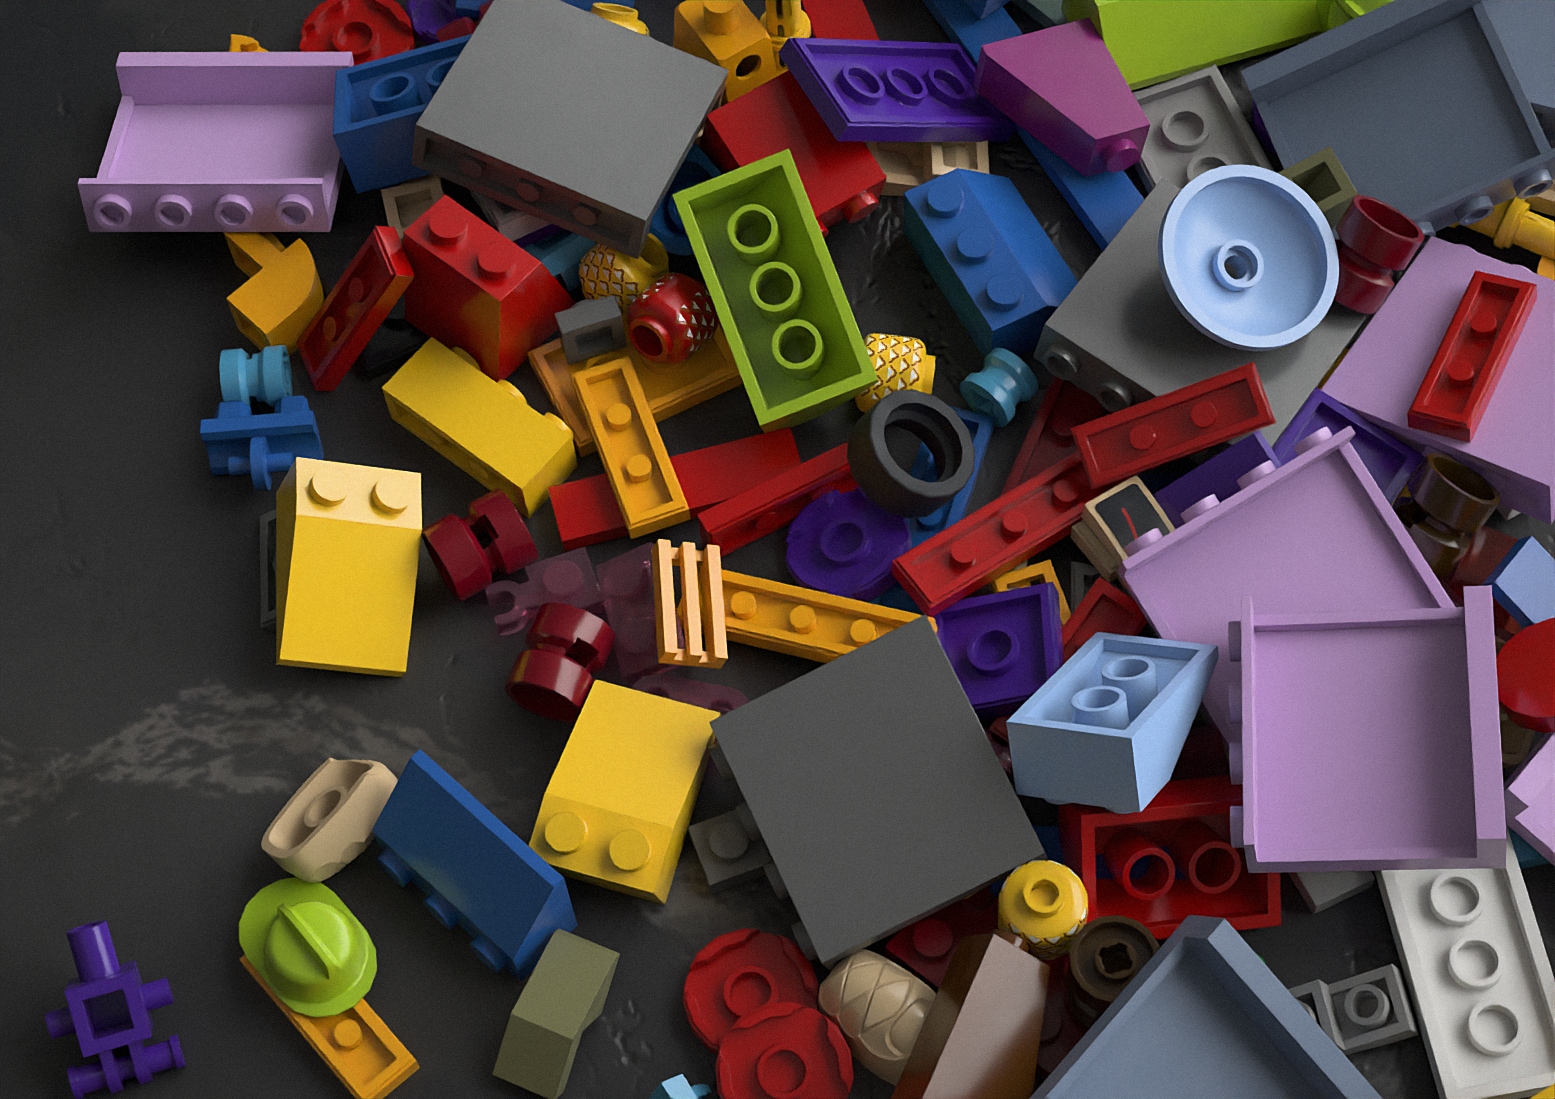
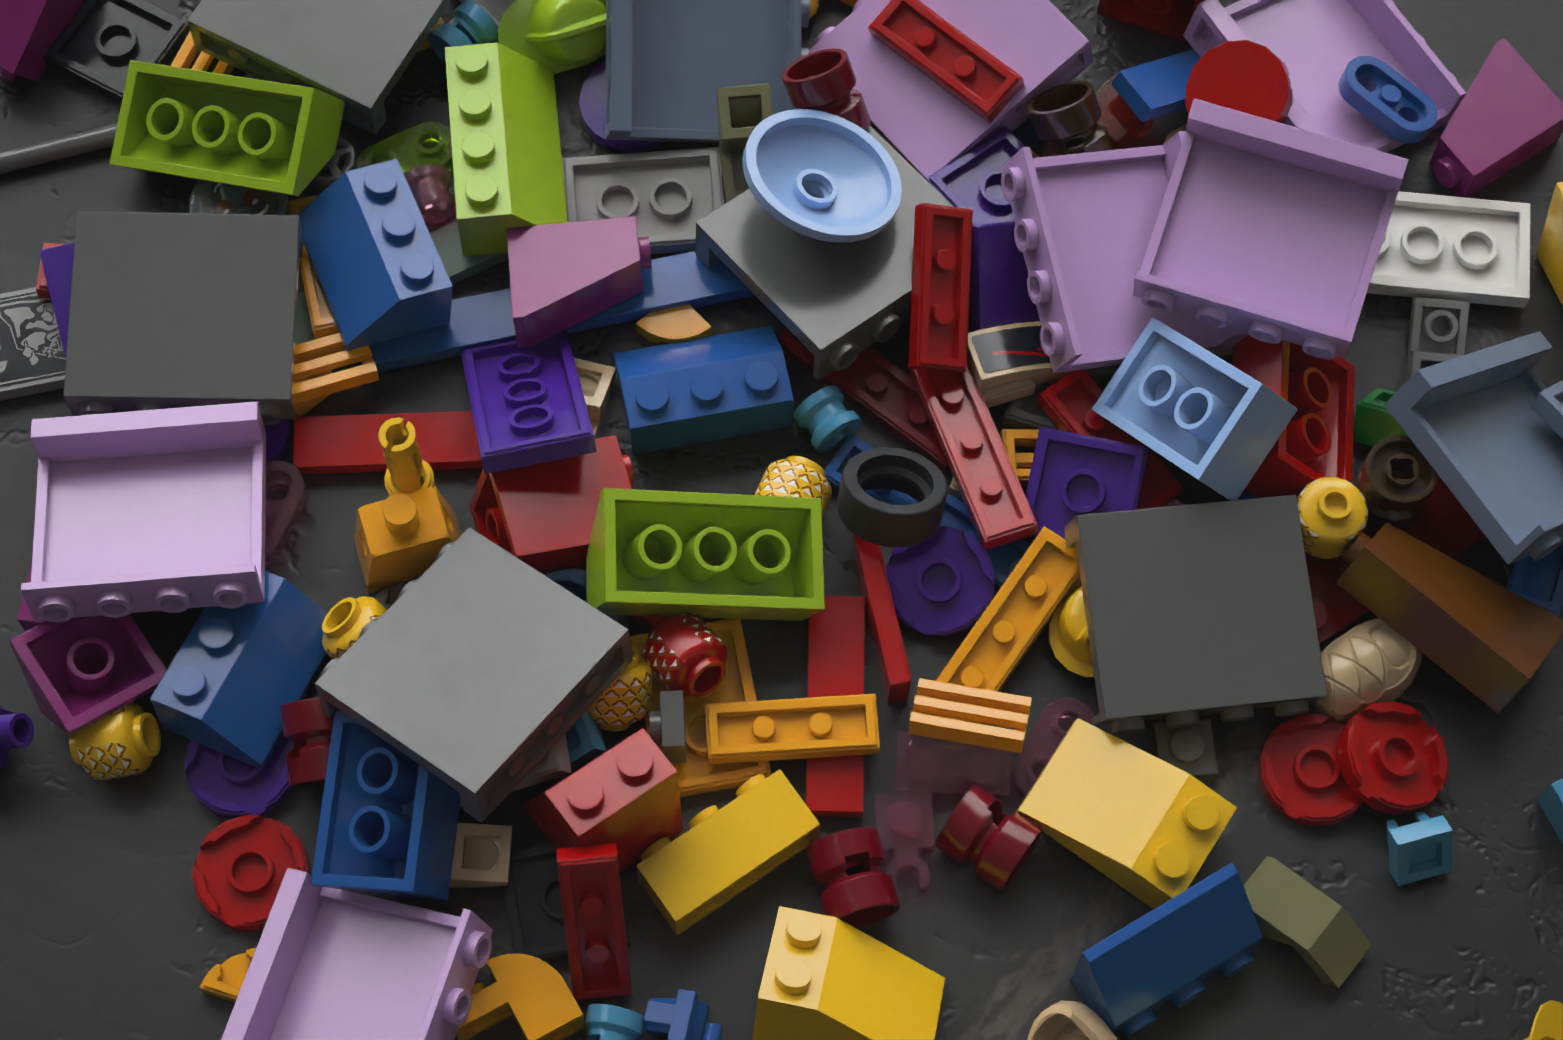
camera: 80 degrees left, 5 degrees up
(1064, 224) = (673, 325): none -> light orange tile

